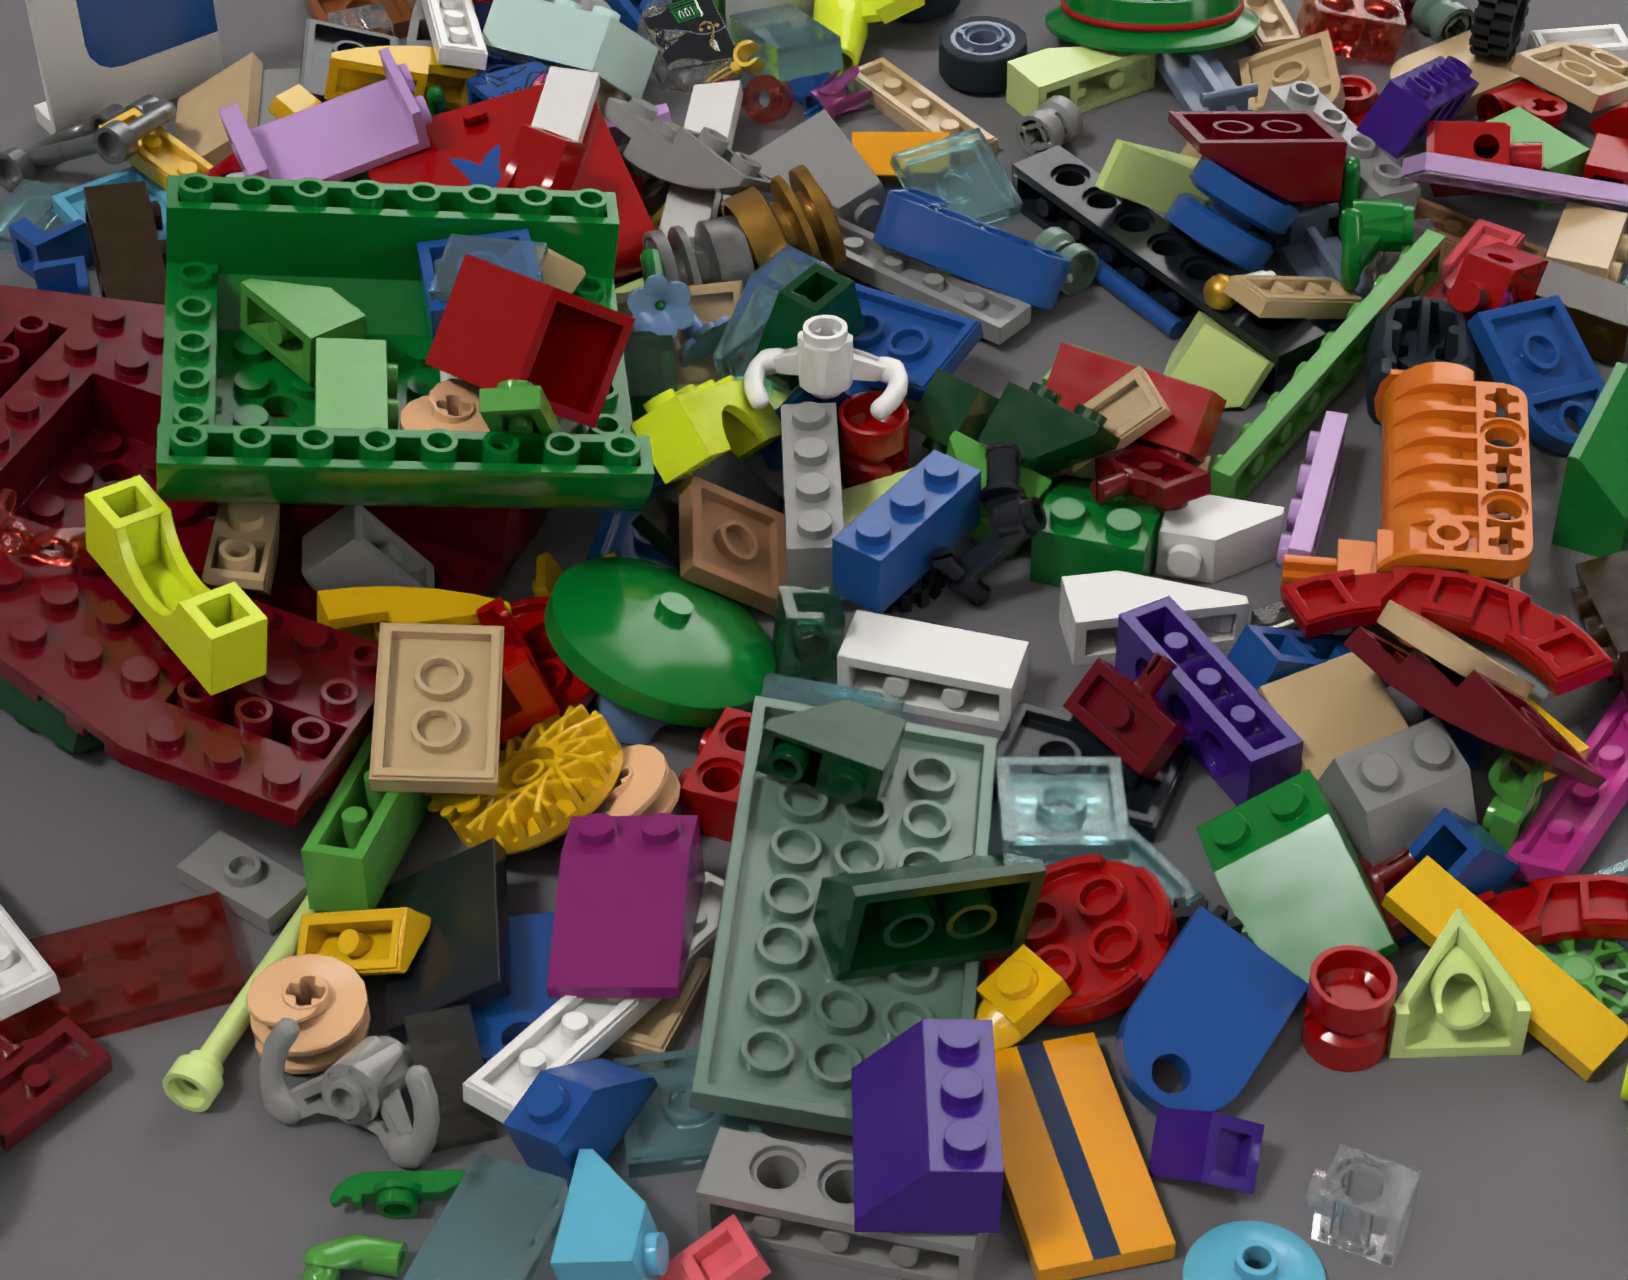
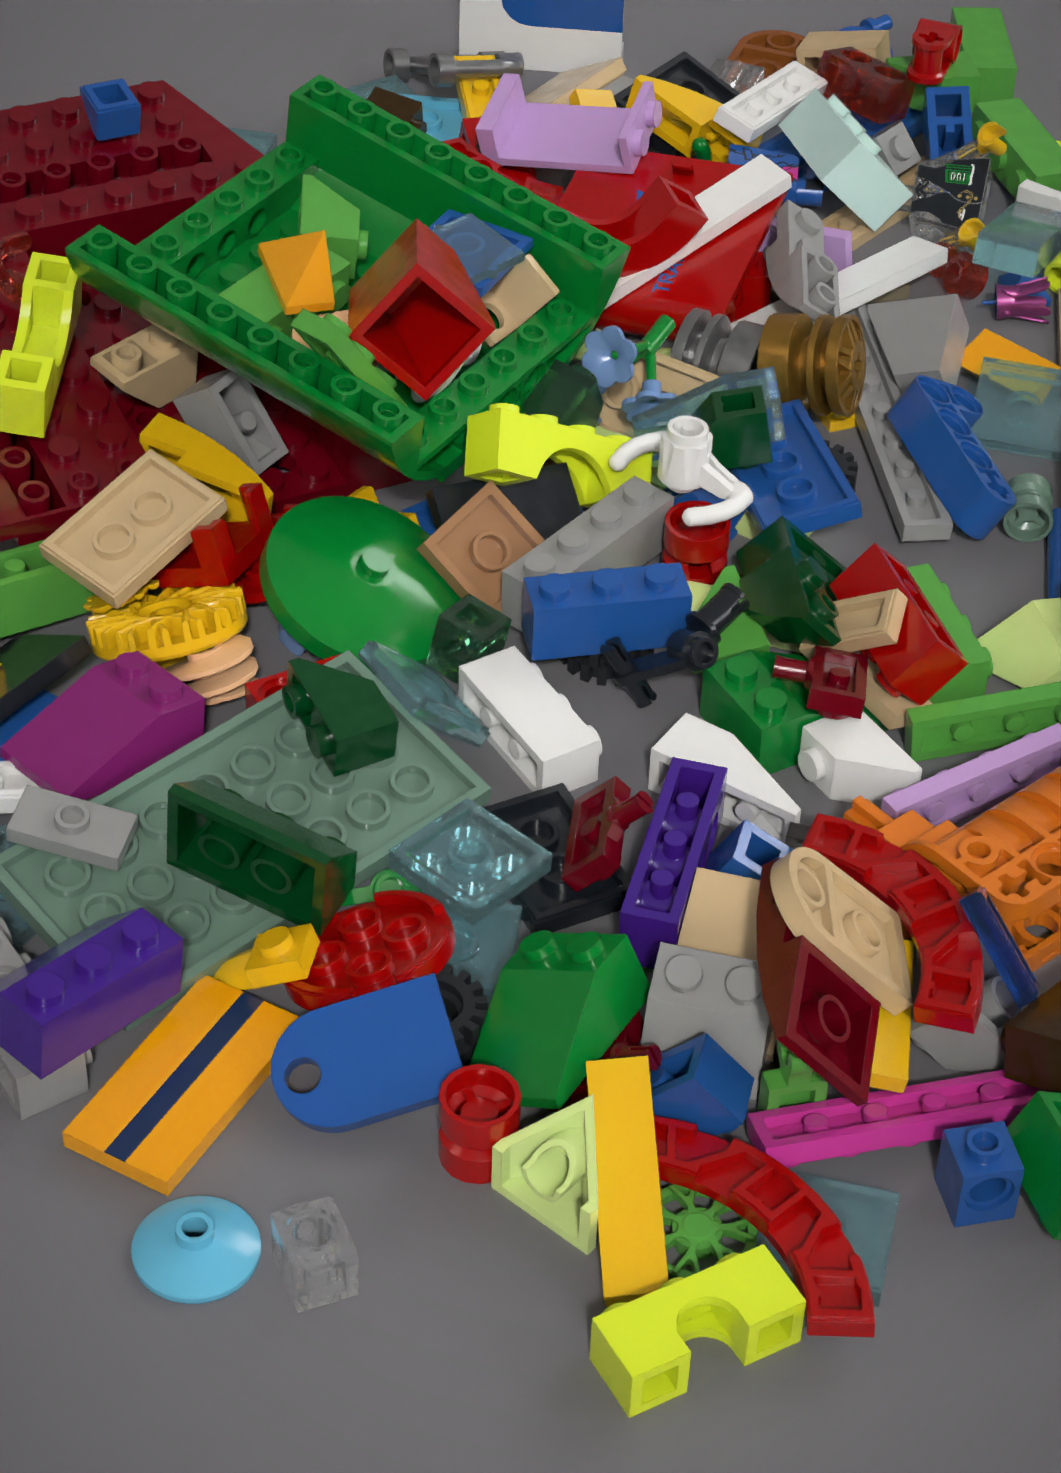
camera: 40 degrees right, 0 degrees up
(367, 367) = (299, 272): none -> light orange slope
(735, 1004) = (72, 827): none -> light grey plate
(1206, 1149) = (265, 1142): dark purple panel -> none
(1543, 591) = (1000, 946): none -> clear blue tile

